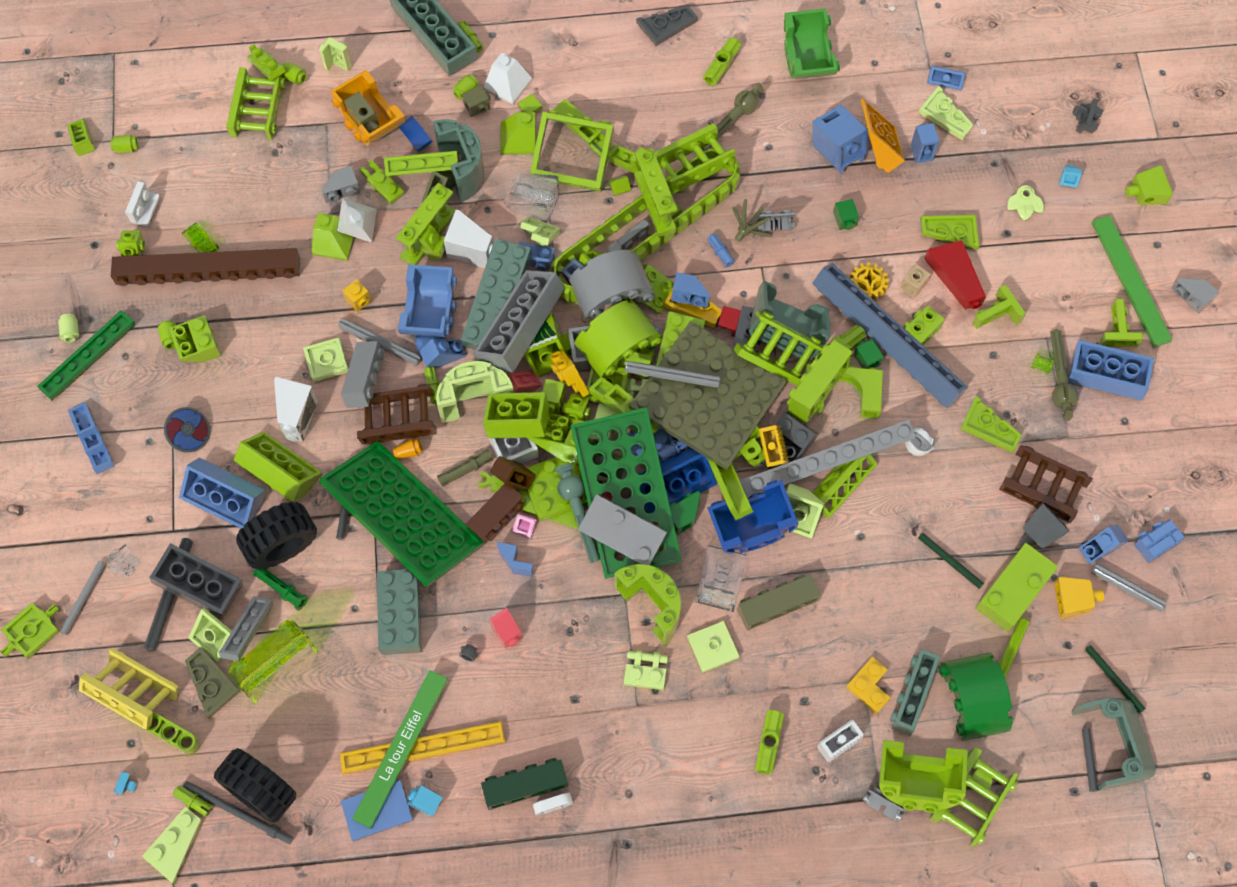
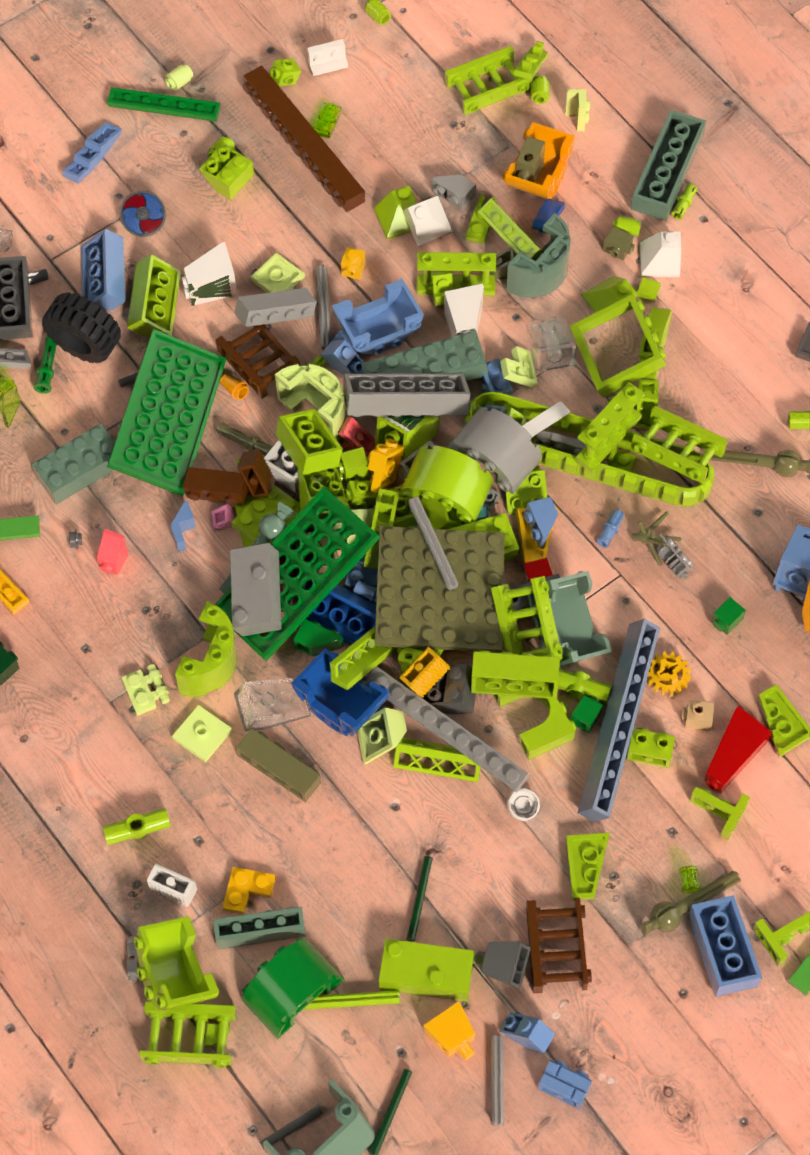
camera: 60 degrees right, 5 degrees down
(607, 232) = (546, 418): none -> white sticker

